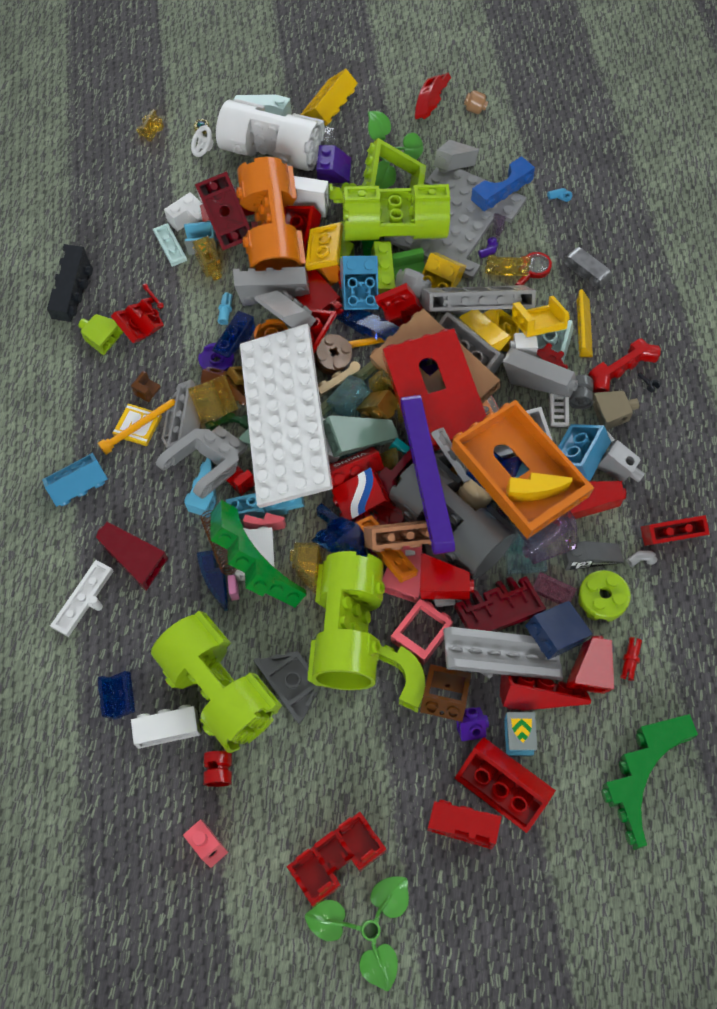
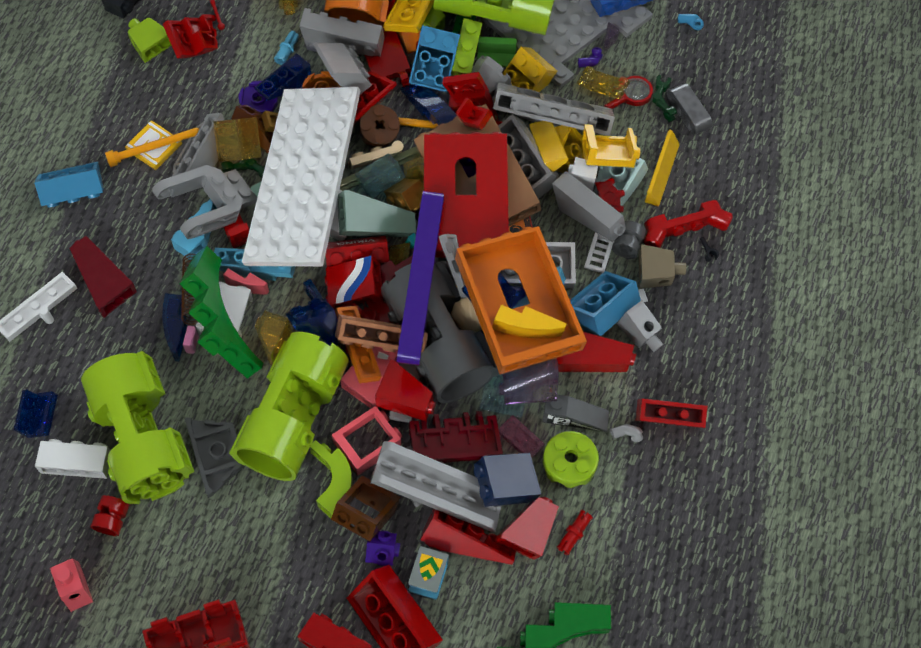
camera: 10 degrees right, 0 degrees up
(144, 387) = (174, 108): reddish brown panel -> none
(417, 321) = (473, 115): none -> red bracket
(557, 267) = (661, 87): none -> dark green piece

